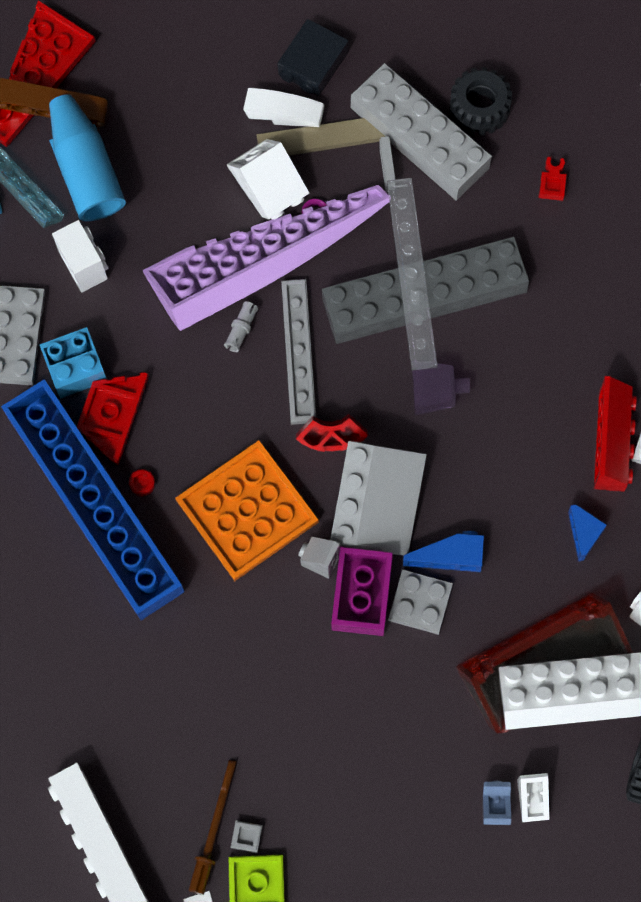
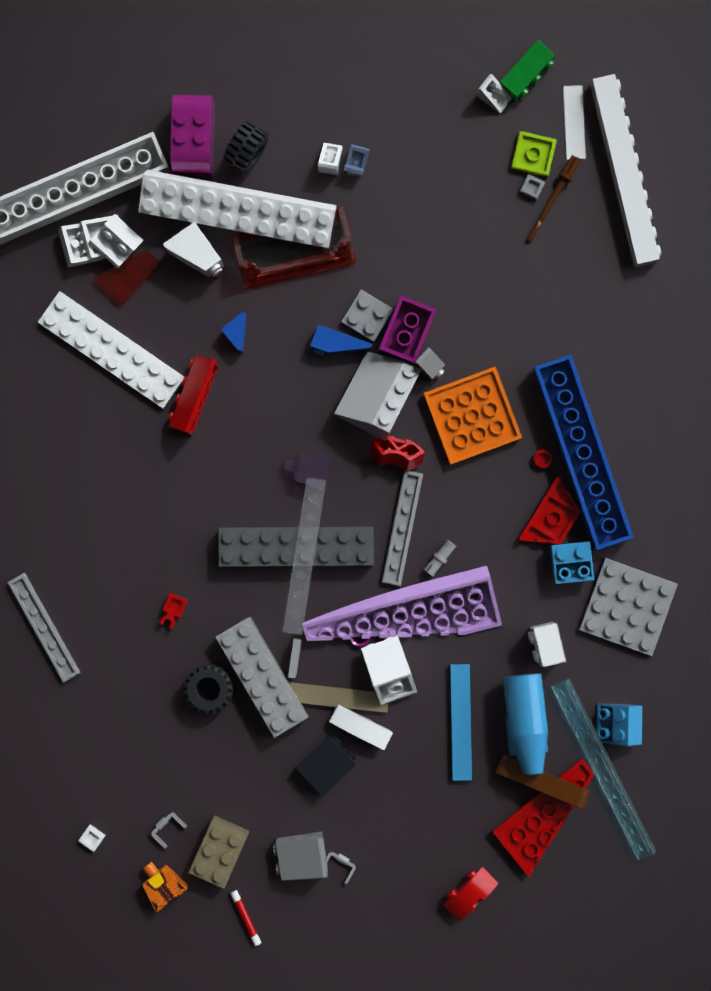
camera: 165 degrees left, 15 degrees up
(164, 149) = (461, 722): none -> dark azure tile

